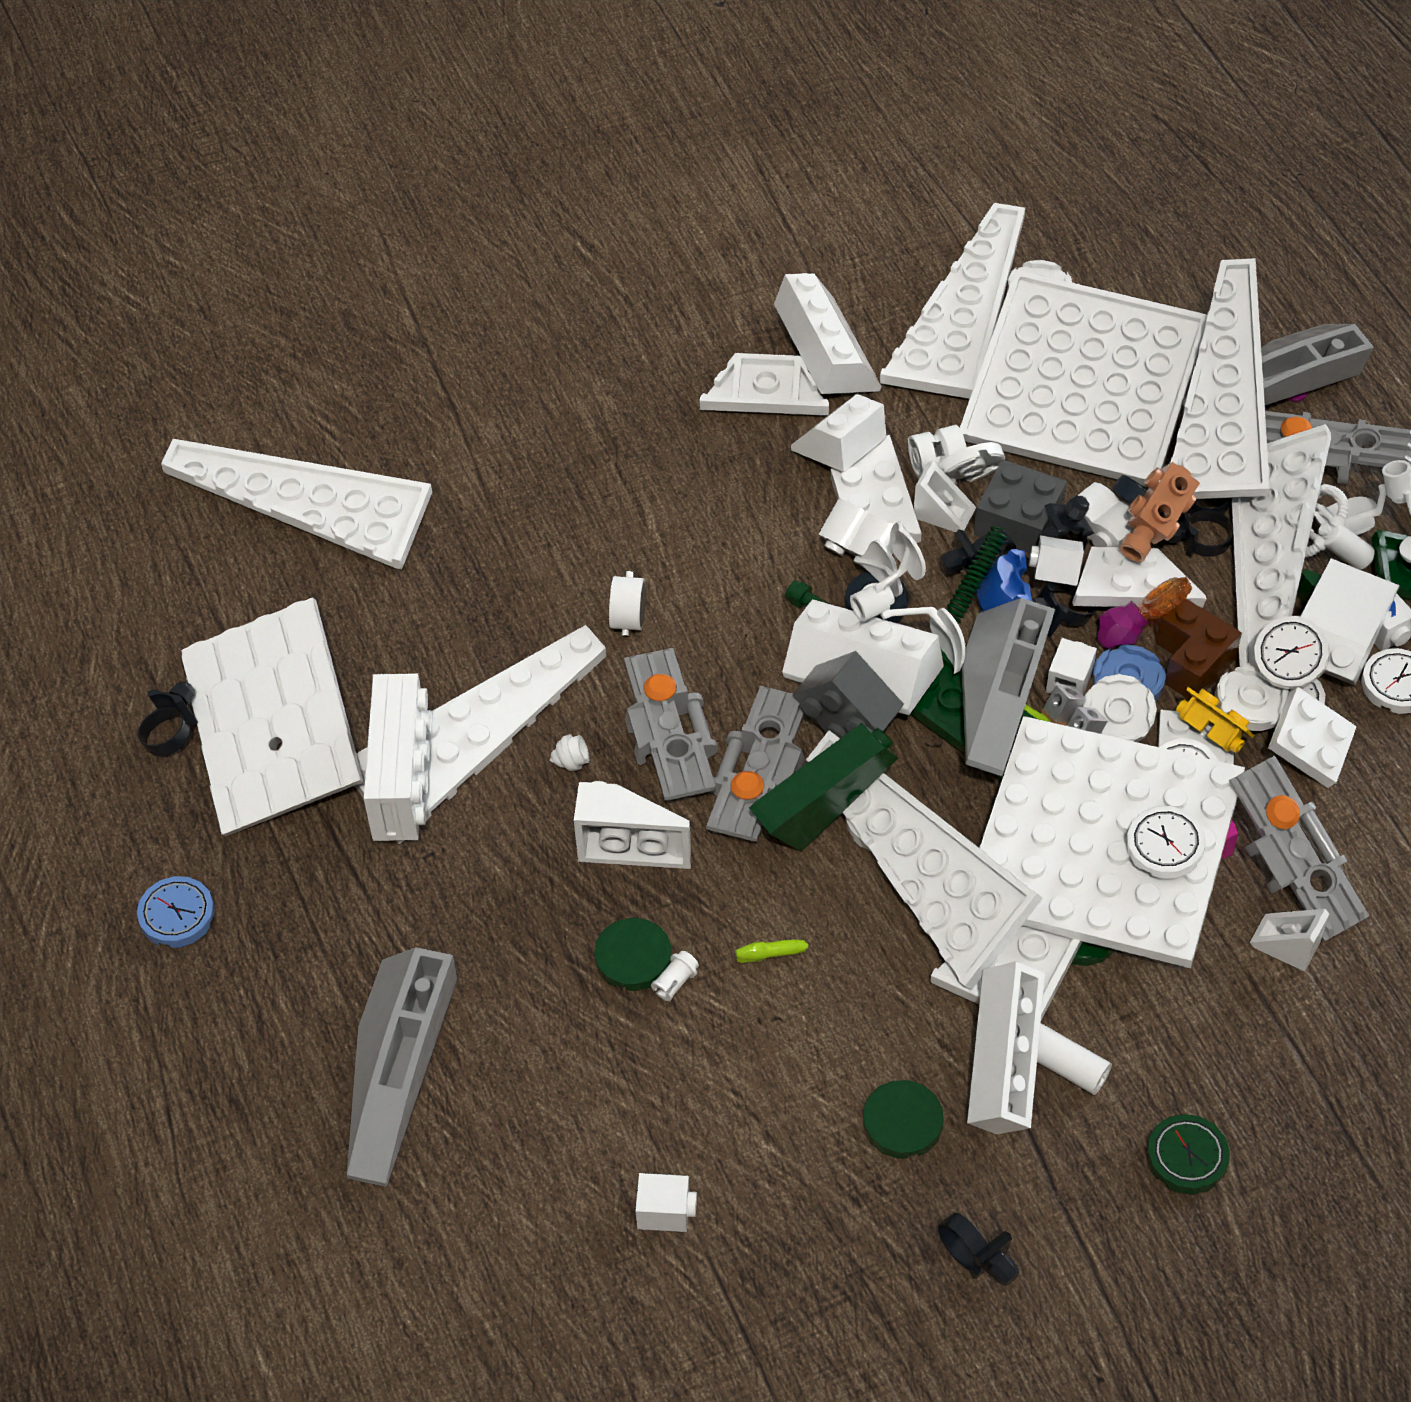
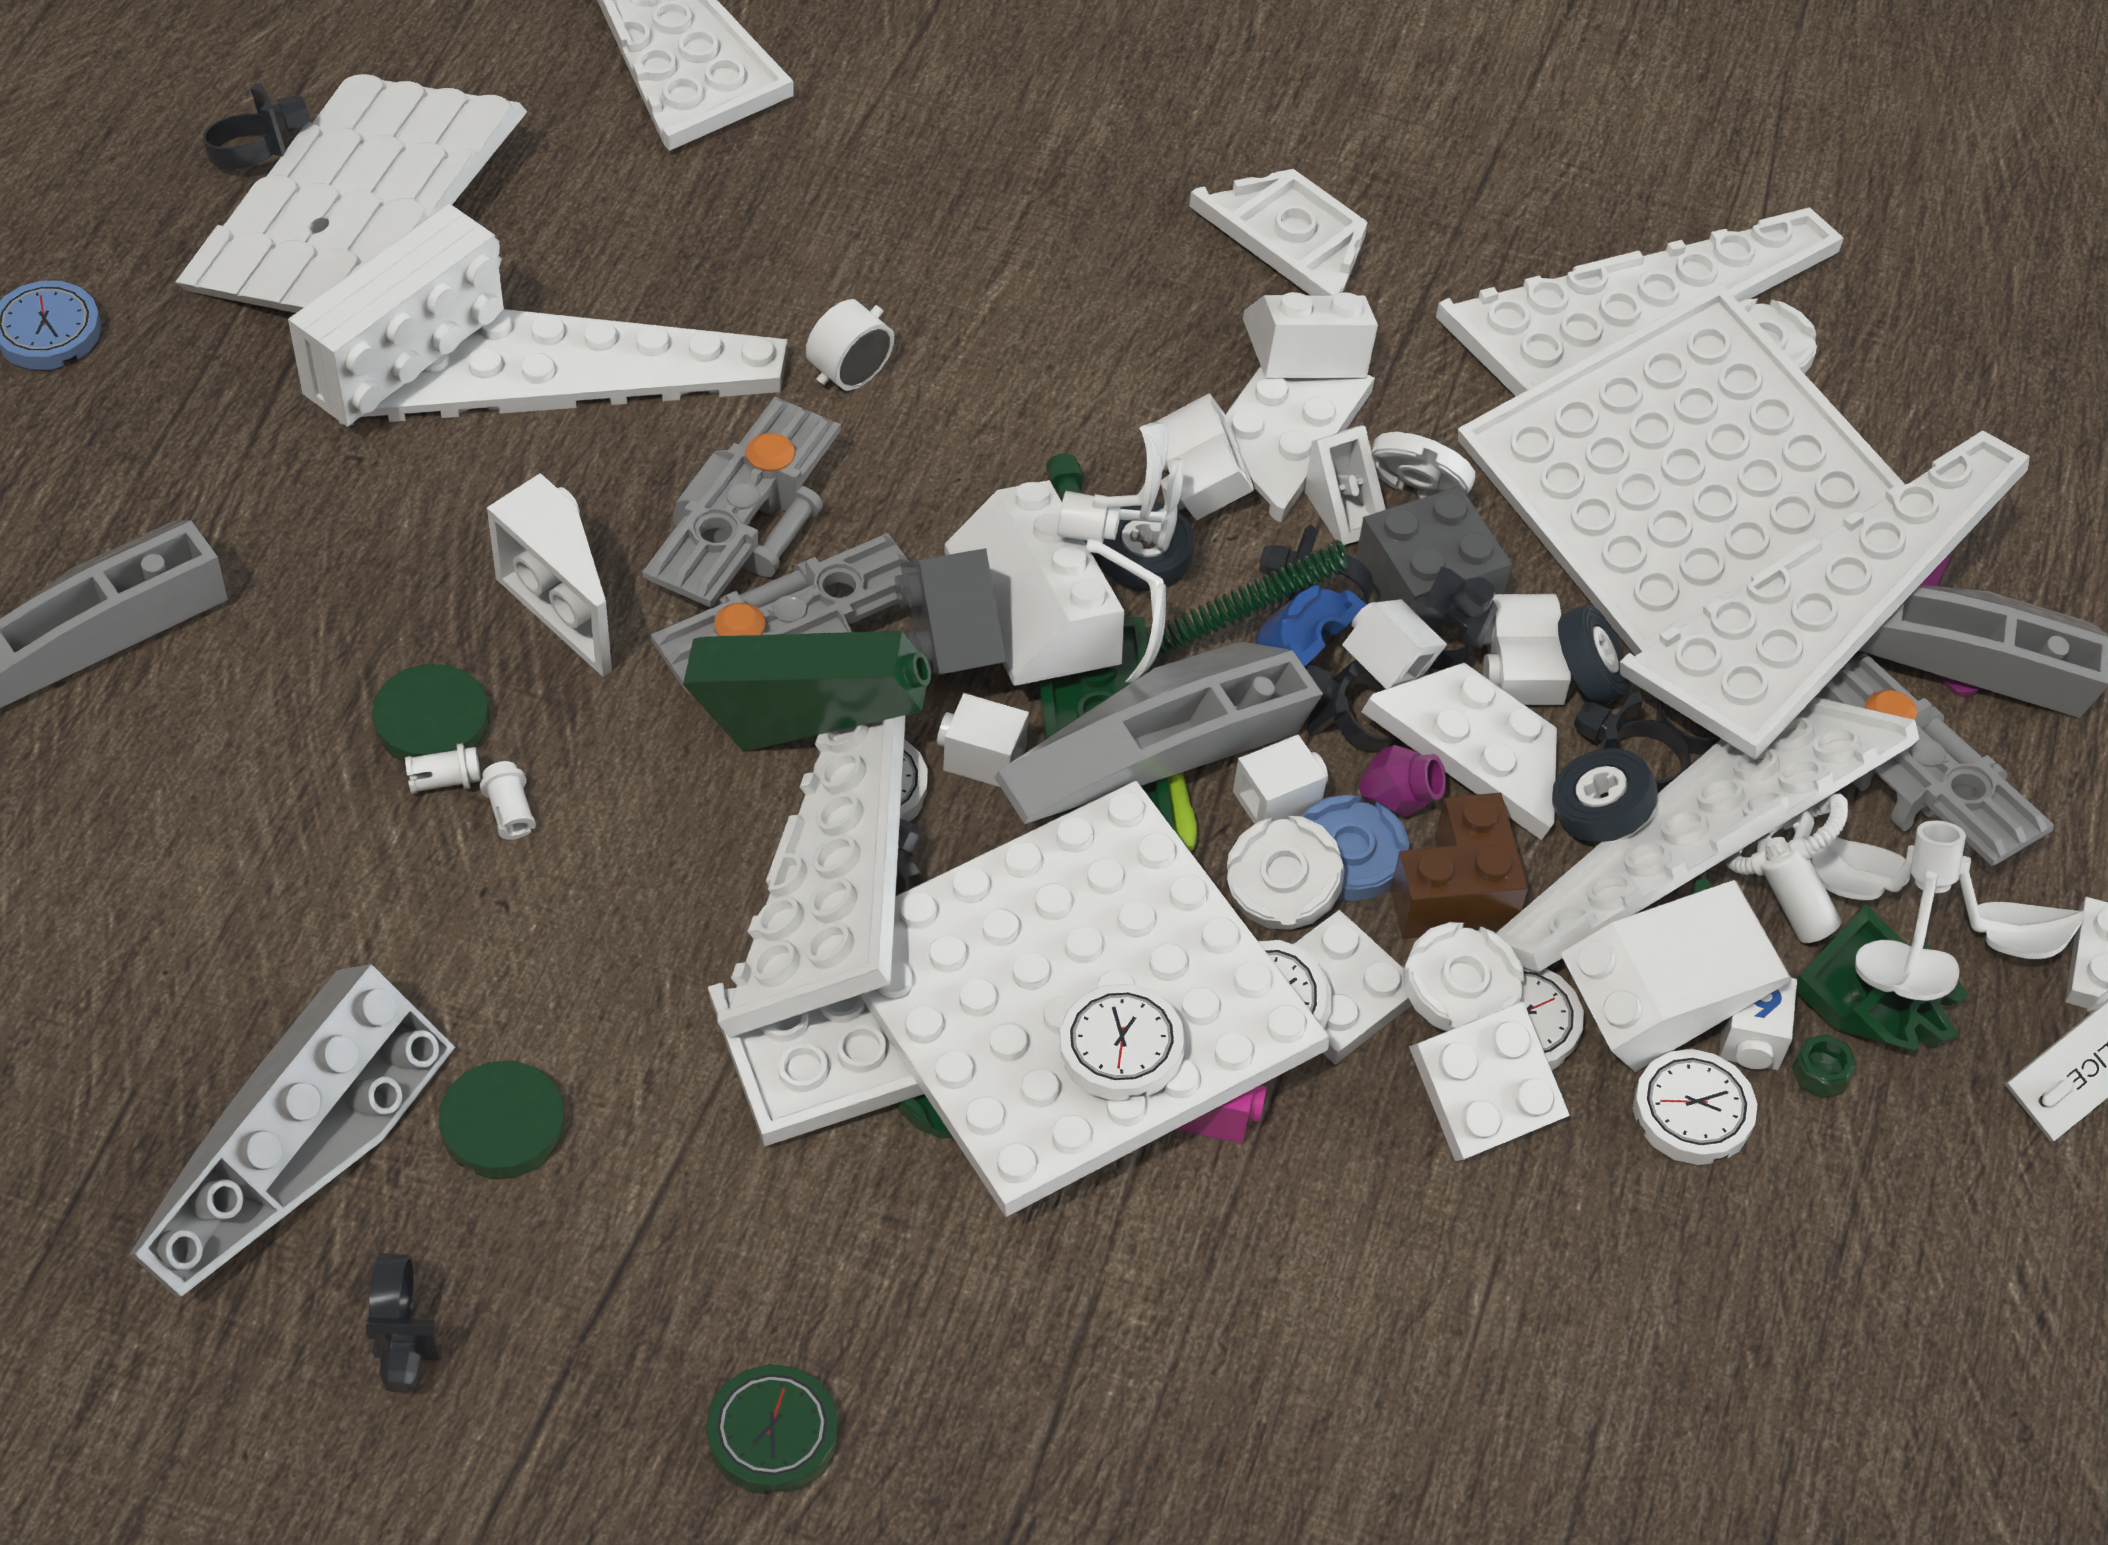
camera: 35 degrees right, 0 degrees up
(570, 753) = (613, 459): white plate -> none
(664, 1202) = (142, 989): white brick -> none
(724, 964) = (504, 788): none -> white pin
(761, 950) = (568, 818): lime piece -> none
(816, 1198) = (295, 1124): none -> light grey wedge
(823, 336) = (1421, 220): white slope -> none
(918, 754) = (982, 738): none -> white brick
(929, 447) = (1393, 408): white wheel -> none
(1006, 1048) = (679, 1127): white brick -> none
(1066, 709) = (1214, 830): flat silver piece -> none
(1071, 1060) = (755, 1205): white piece -> none
(1165, 597) = (1474, 778): clear orange gear -> none
(1168, 491) = (1595, 666): nougat brick -> none
(1211, 548) = (1609, 818): none -> black bush
(1227, 727) = (1388, 983): yellow hinge -> none
(1287, 851) = (1283, 1182): light grey piece -> none
(1291, 652) = (1557, 954): white tile -> none
(1291, 935) = (1190, 1291): white slope -> none

